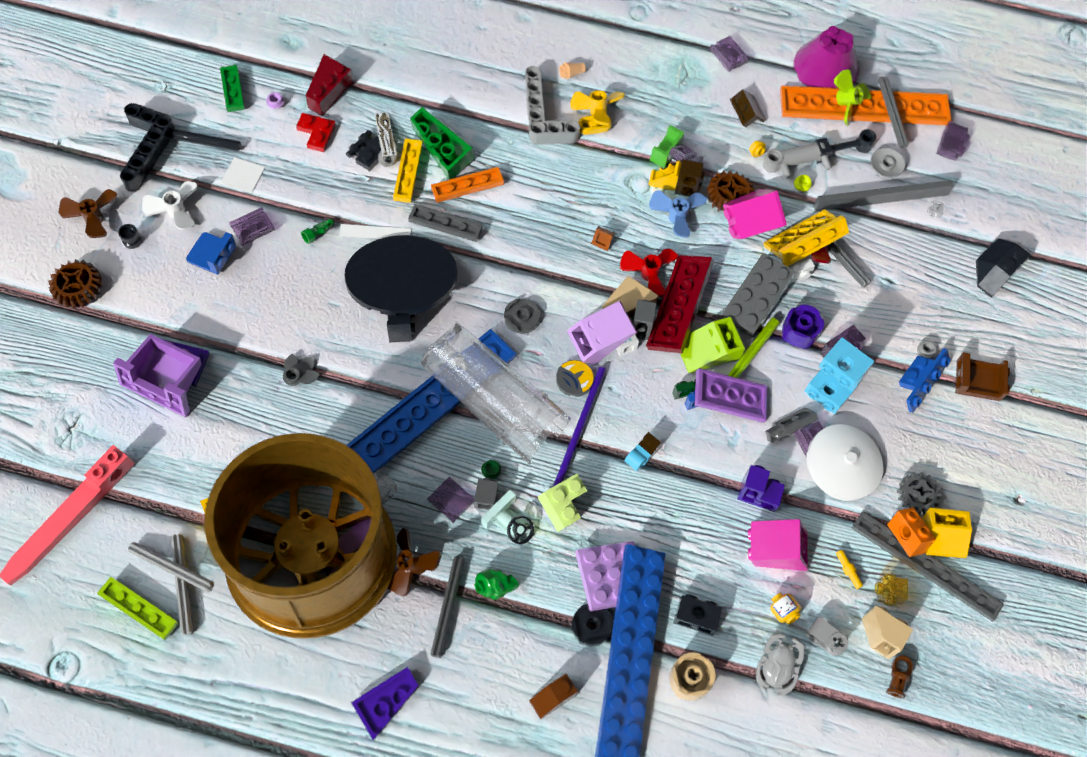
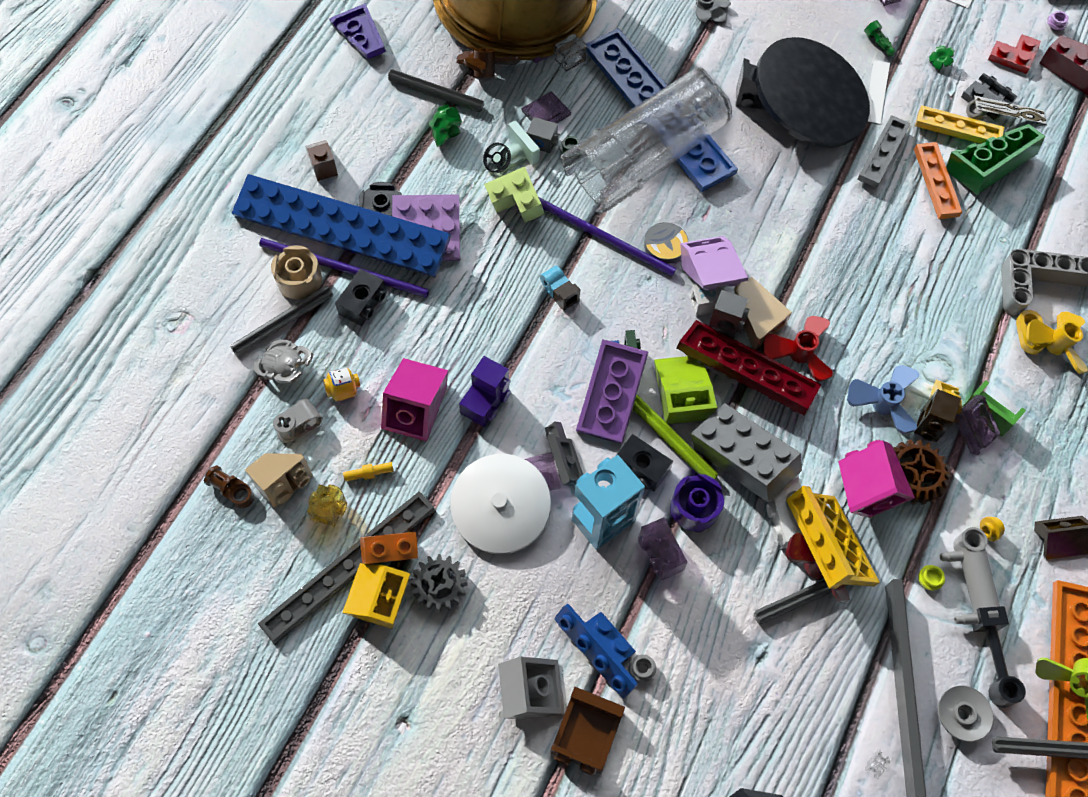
camera: 105 degrees right, 0 degrees up
(332, 183) = (941, 57): none -> green plant
(522, 316) = (753, 207): dark grey tile -> none
(602, 238) = (852, 304): dark orange tile -> none
(667, 640) = (349, 269): none -> dark purple piece
(739, 683) = (281, 320): none -> dark grey axle
(774, 375) = (658, 464): none -> black brick
(969, 417) = (530, 688): none -> light grey slope

